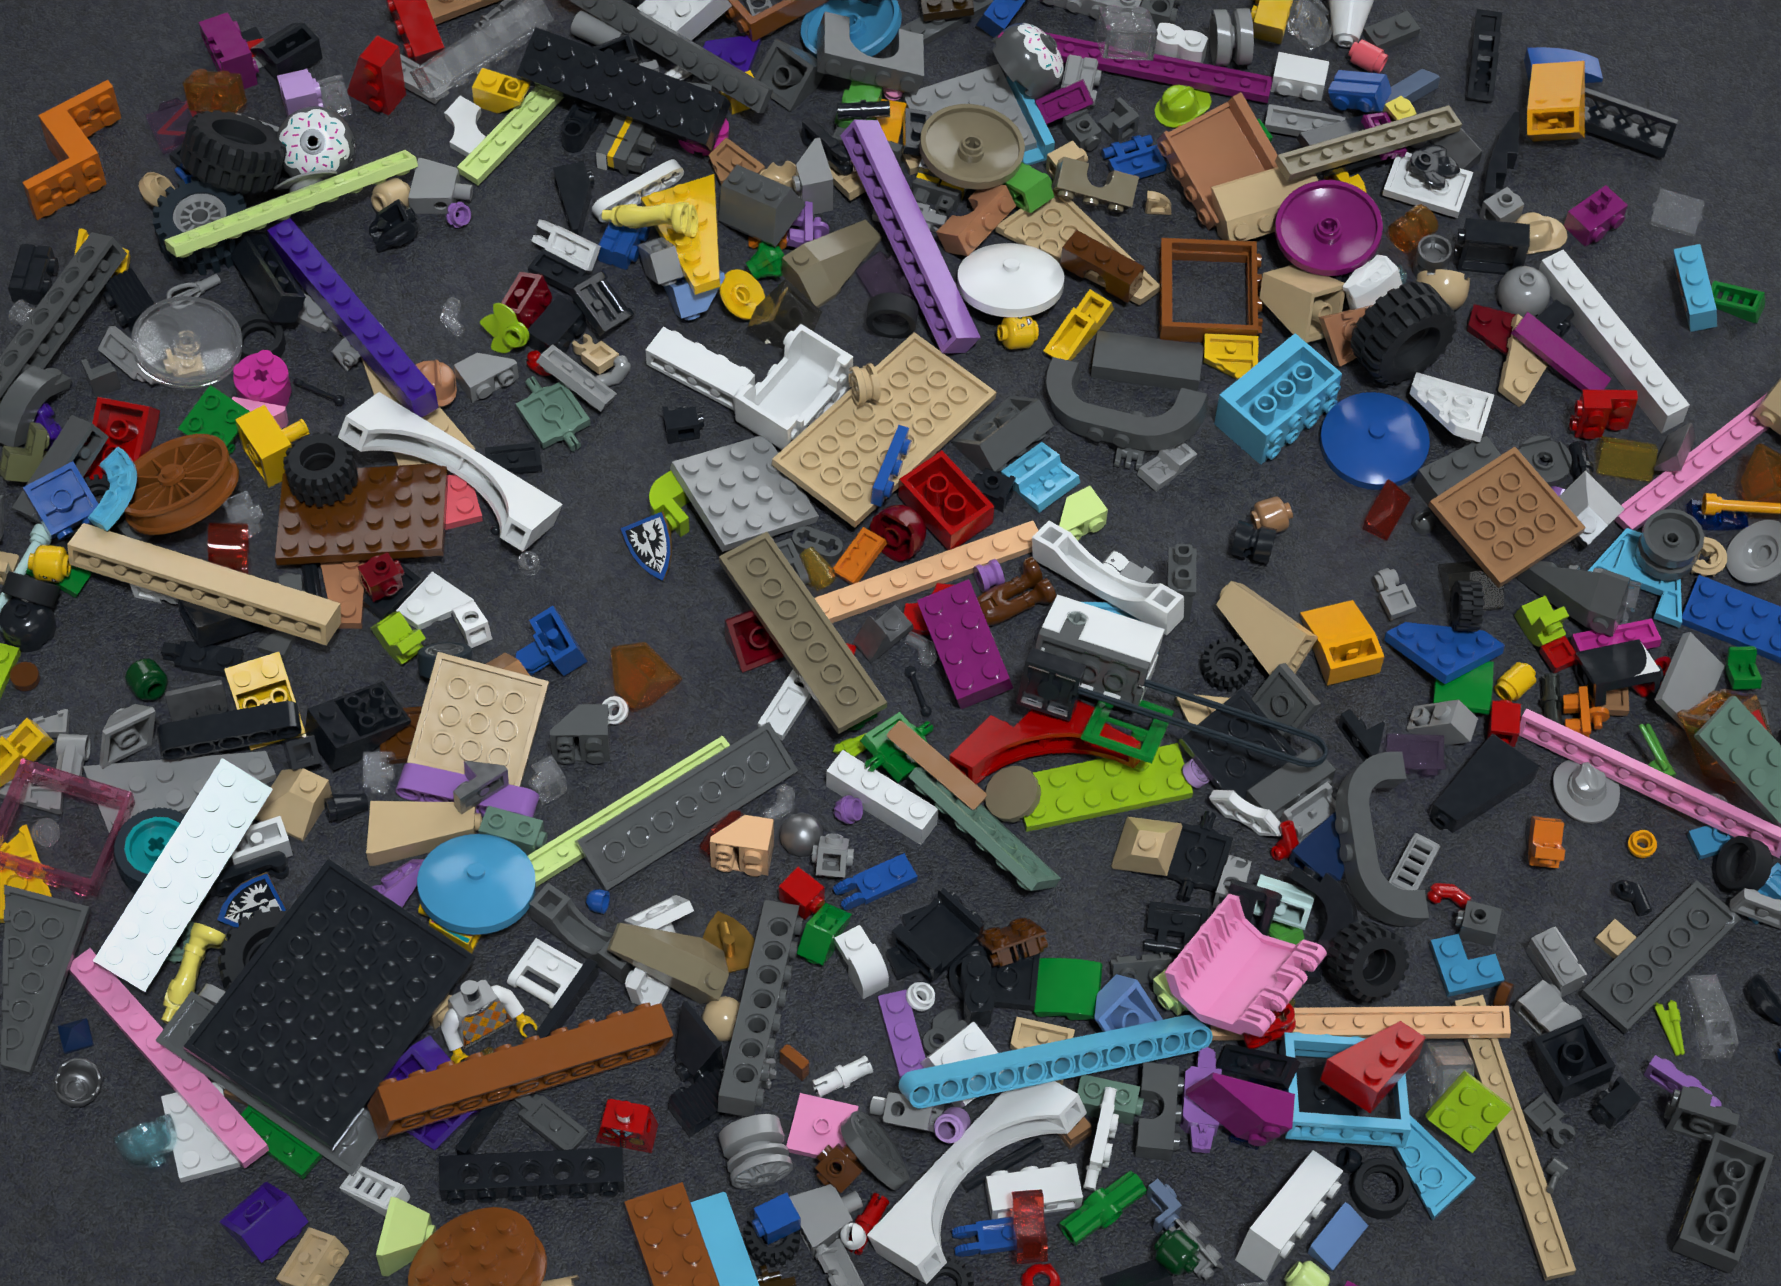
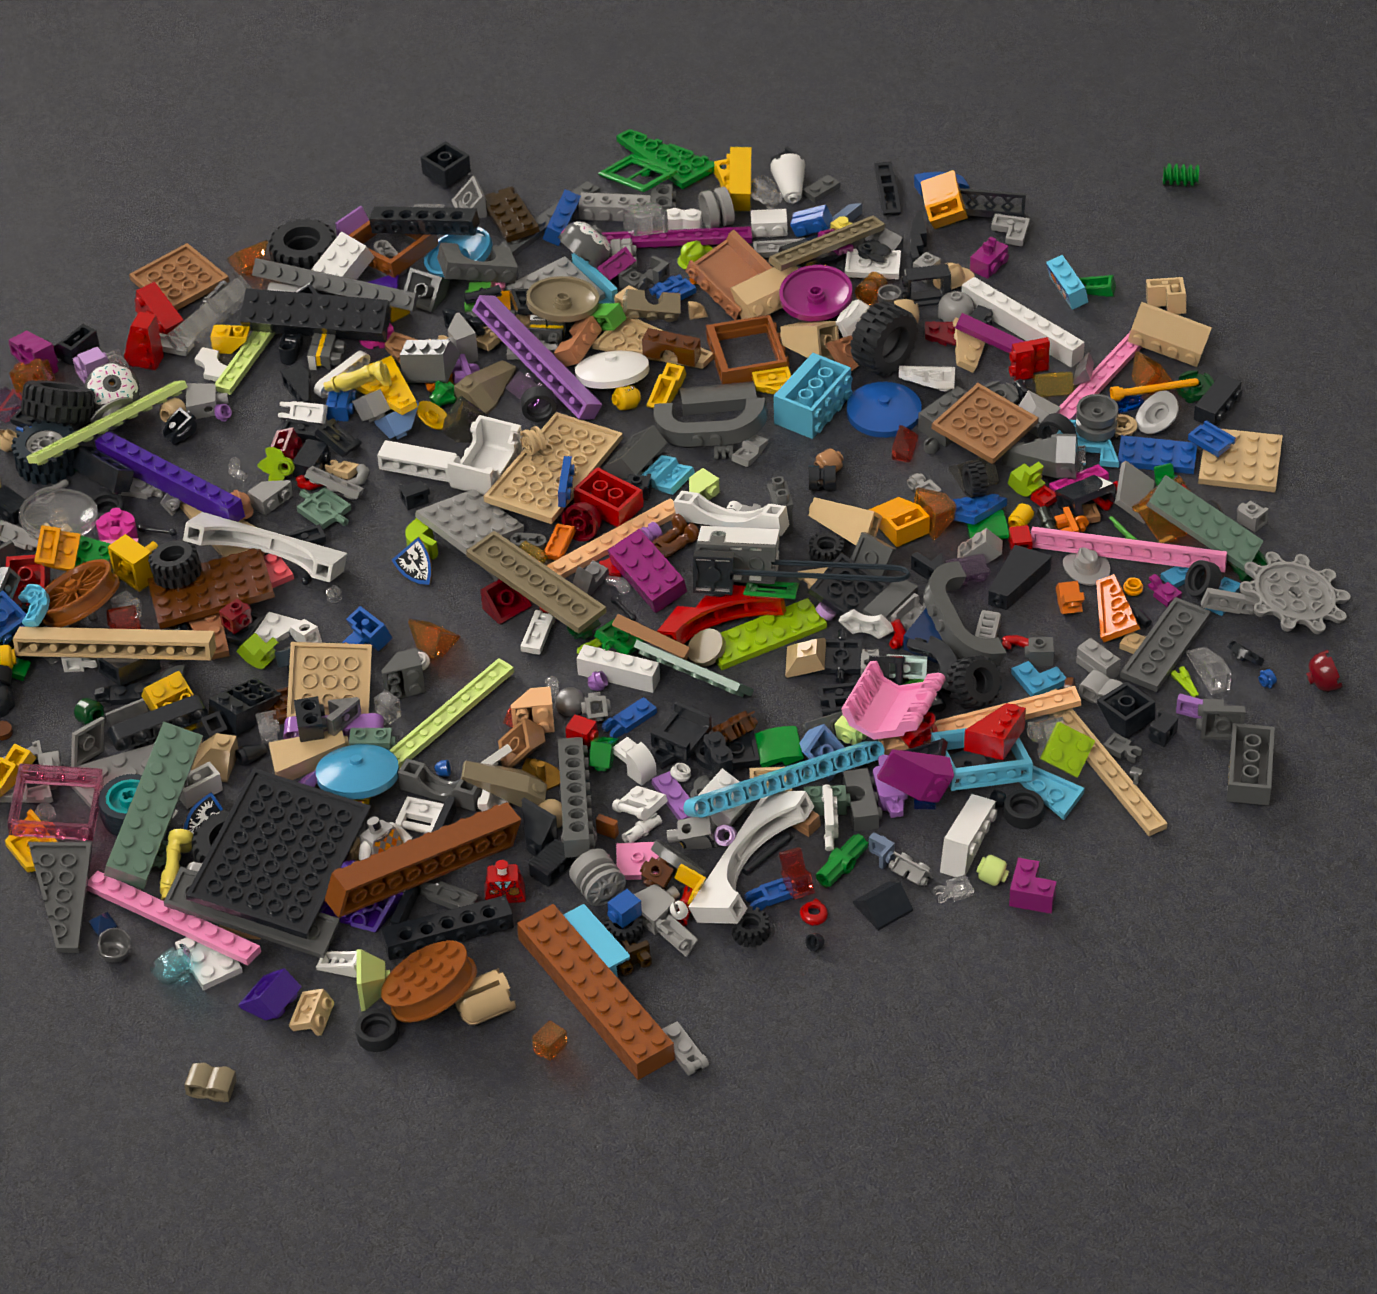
camera: 10 degrees left, 15 degrees down
(168, 403) = (57, 548): none -> light orange slope
(231, 877) = (186, 804): black plate -> none
(282, 1145) = (272, 951): green plate -> none
(429, 781) = (309, 719): none -> black brick
(686, 806) = (486, 701): dark grey plate -> none
(714, 889) = (523, 740): none -> medium nougat slope
(856, 1029) = (640, 802): none -> white plate
(884, 1191) = (690, 878): none -> yellow bracket
(1058, 1182) = (813, 855): white brick -> none
(1177, 1252) = (900, 869): dark green head -> none
(1338, 1237) = (1004, 841): medium blue slope -> none
(1368, 56) = (809, 201): coral brick -> none
(1399, 644) = (938, 507): none -> clear orange slope
(1603, 881) = (1114, 610): none -> orange wing
(1605, 551) = (1058, 421): none -> black tyre
(1648, 169) = (1014, 226): none -> light grey plate
(1677, 212) = (1041, 247): clear piece -> none
(1685, 865) = (1163, 592): none -> magenta plate

